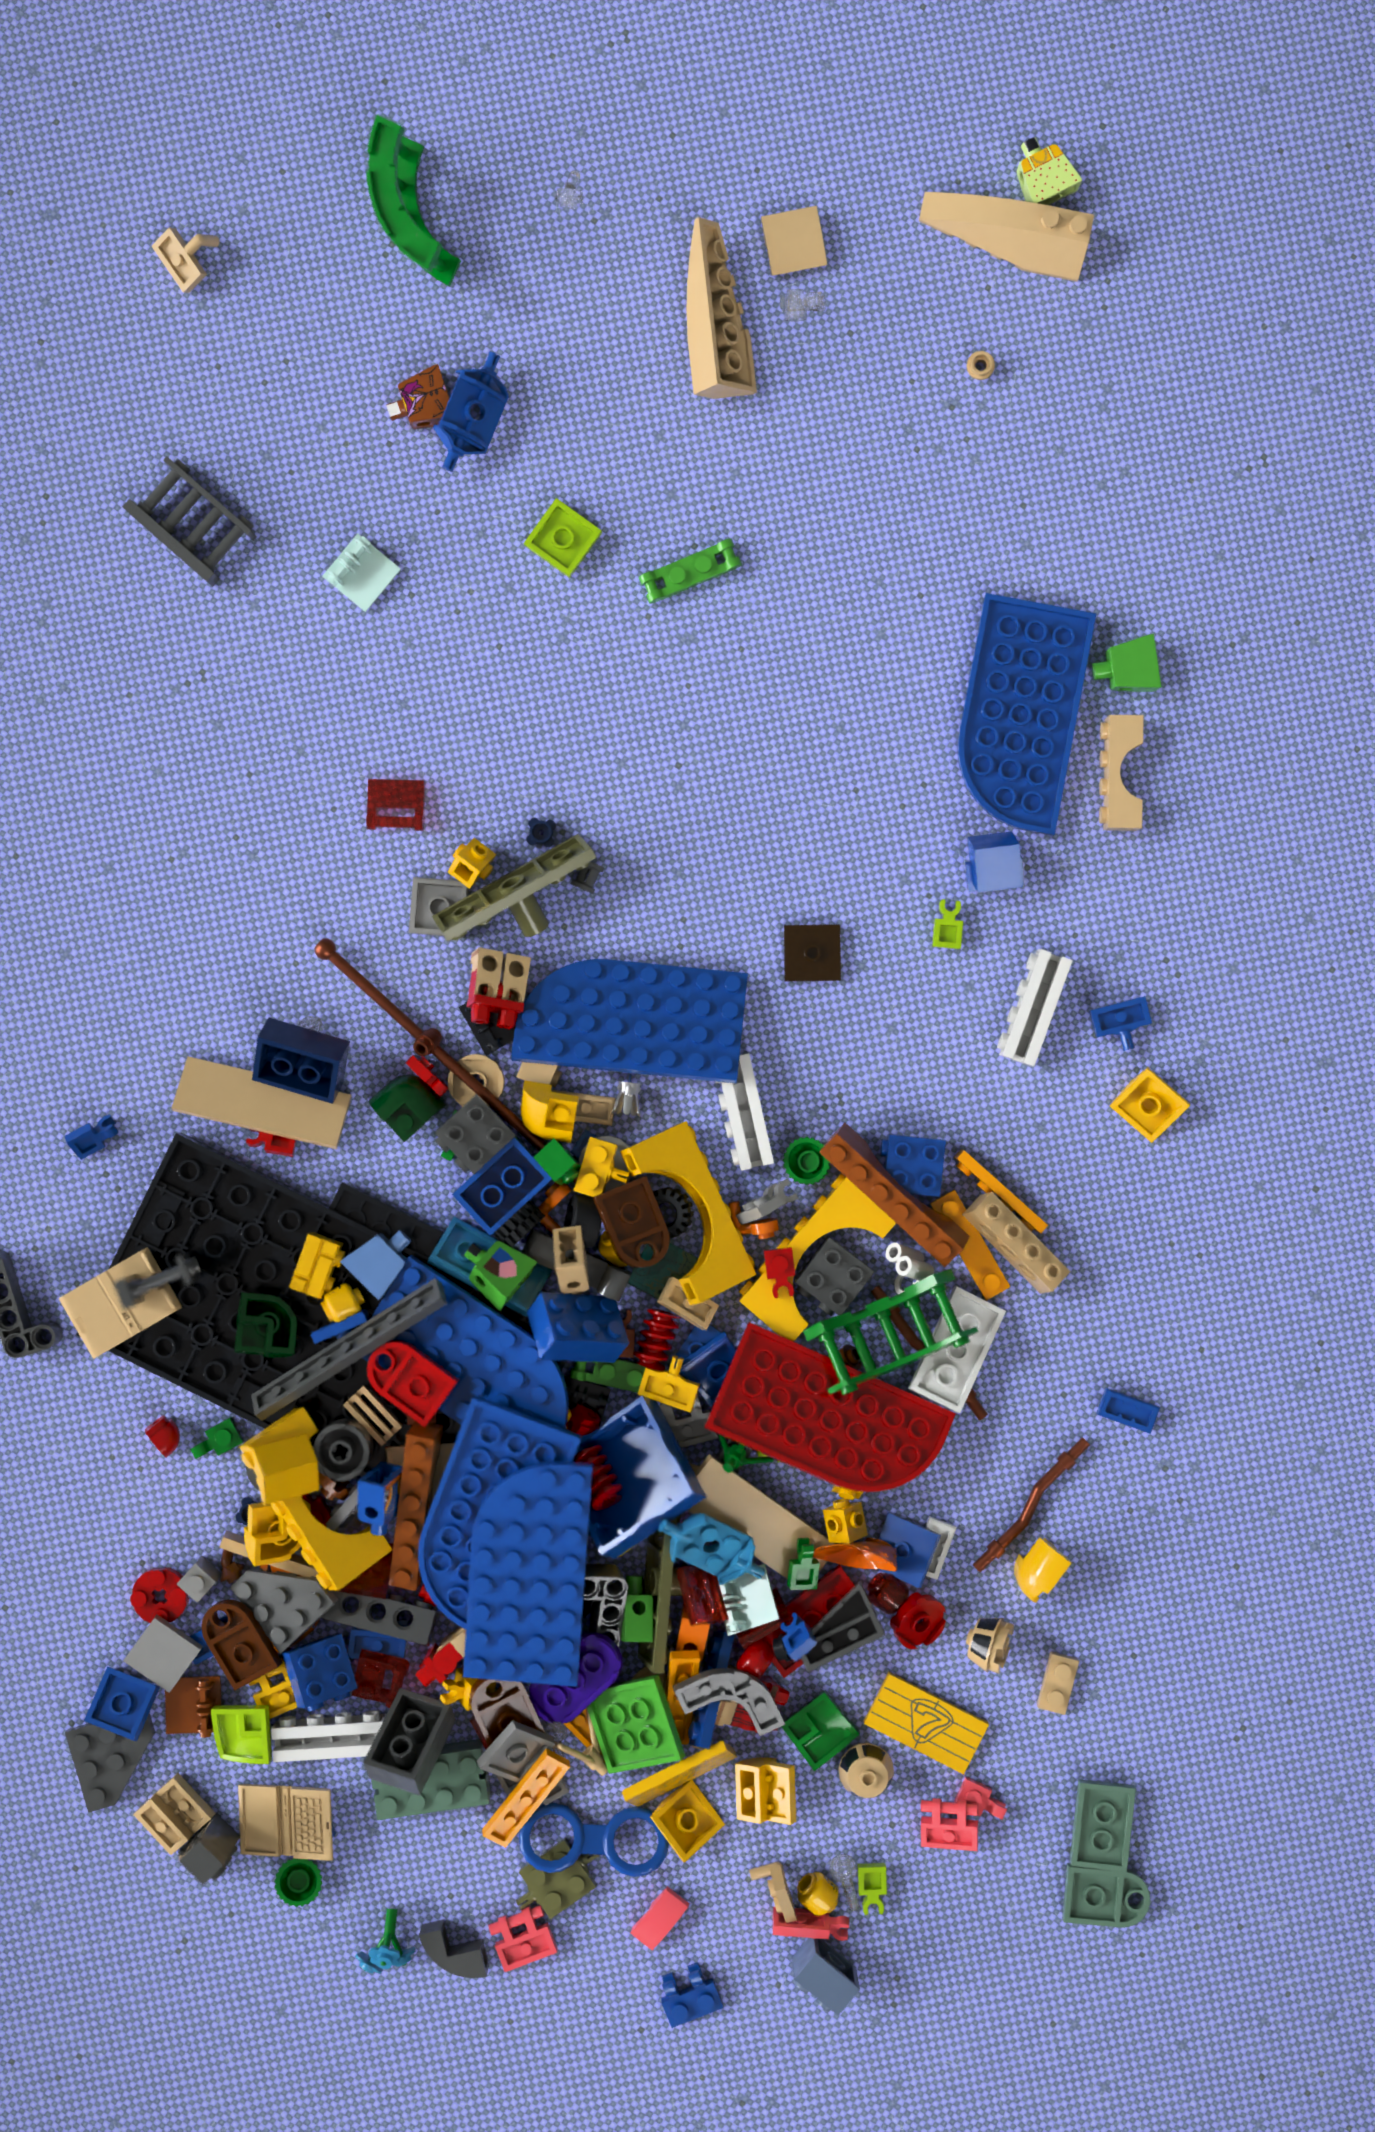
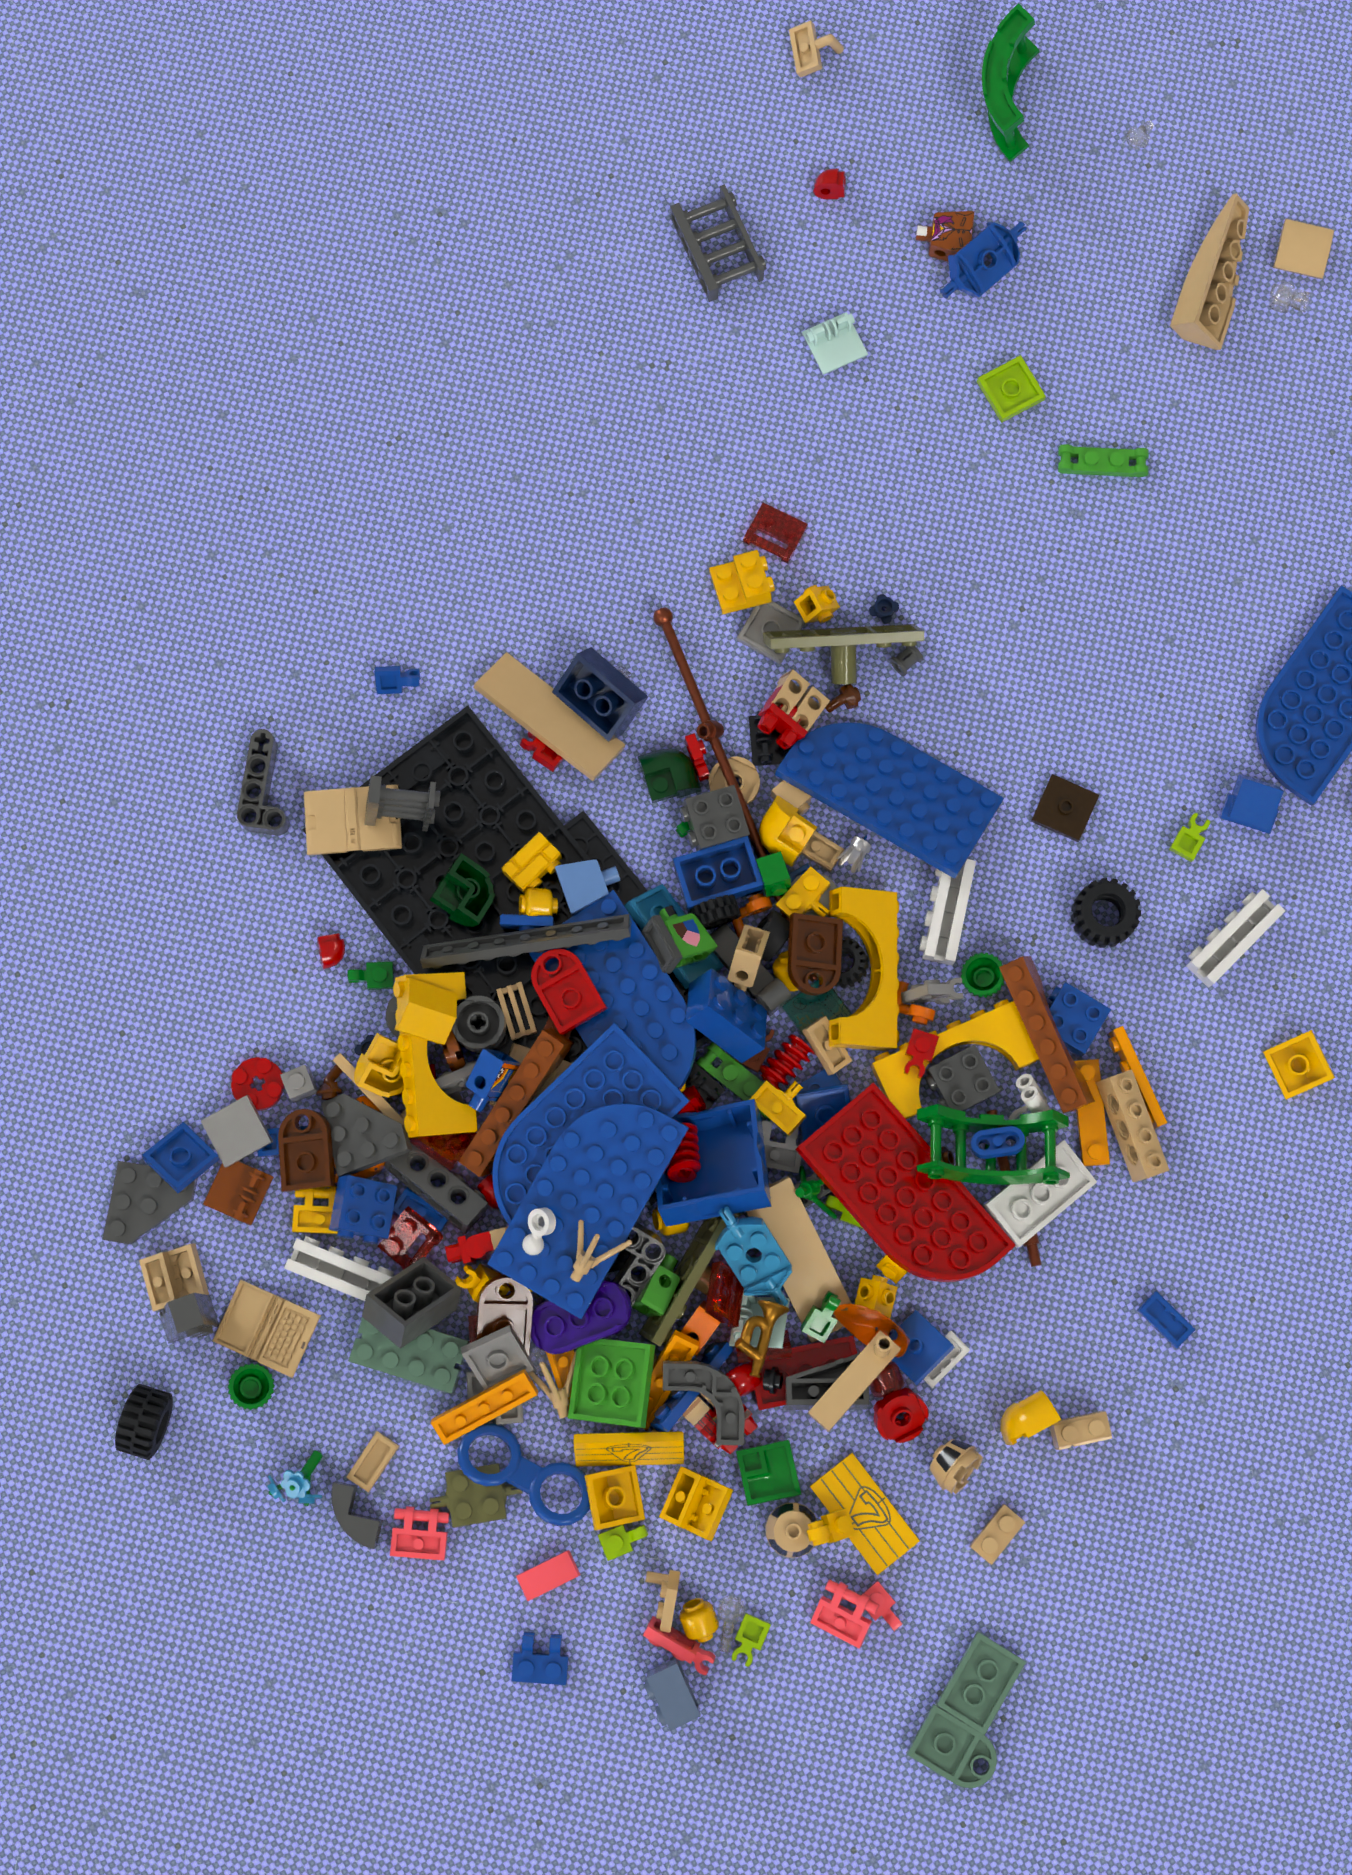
camera: 25 degrees right, 10 degrees down
(214, 1966) = (143, 1421): none -> black tyre
(242, 1733) = (269, 1231): lime plate -> none
(276, 400) = (830, 184): none -> red piece
(387, 874) = (742, 582): none -> yellow plate
(446, 1892) = (373, 1461): none -> tan tile
(481, 1290) = (662, 944): none -> dark grey tile
(496, 1623) = (541, 1223): none -> white plate
(548, 942) = (848, 695): none -> reddish brown plate
(554, 1635) = (585, 1260): none -> tan plant
(711, 1854) = (618, 1540): none -> lime plate
(753, 1590) = (771, 1313): none -> pearl gold piece
(798, 1638) = (792, 1369): blue plate -> none
(861, 1621) = (854, 1381): none -> tan piece
(893, 1326) = (996, 1140): none -> blue plate
(905, 1752) = (831, 1528): none -> yellow plate
(923, 1043) = (1117, 895): none -> black tyre
(997, 1548) = (997, 1386): copper bar -> none
(1094, 1553) = (1080, 1430): none -> tan brick
(1121, 1019) = (1304, 982): blue plate -> none

